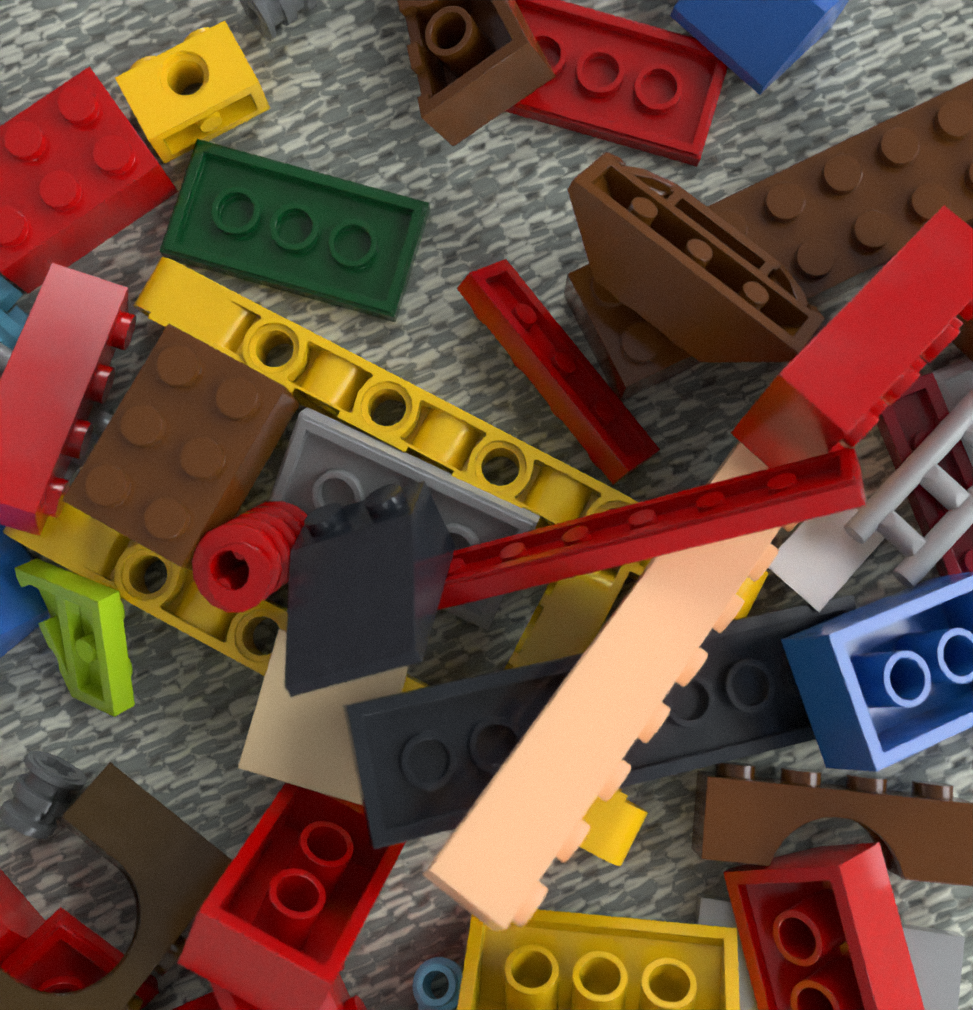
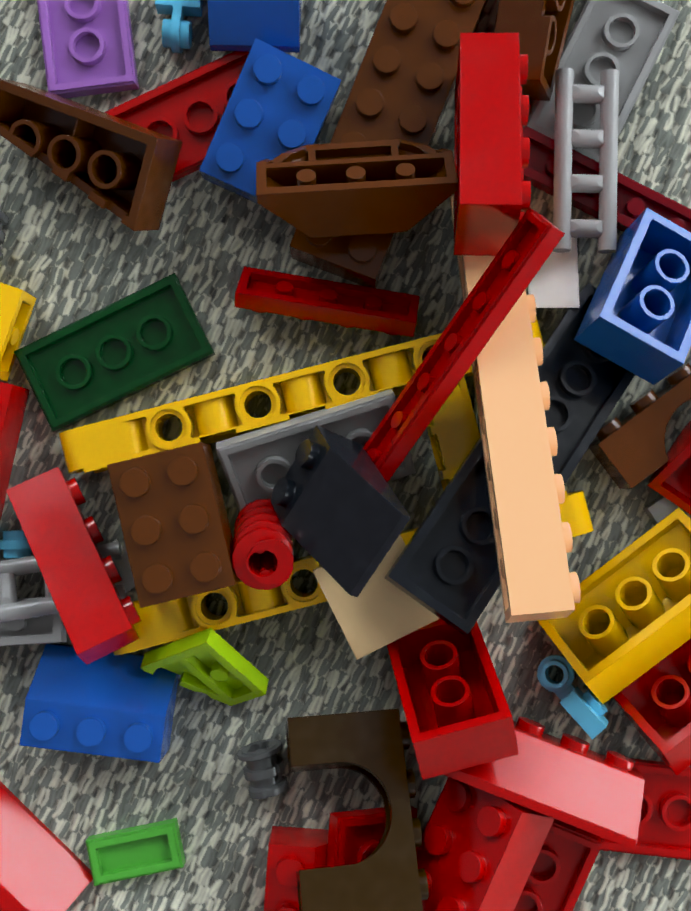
camera: 45 degrees left, 5 degrees up
(676, 119) = (271, 111): none -> blue brick

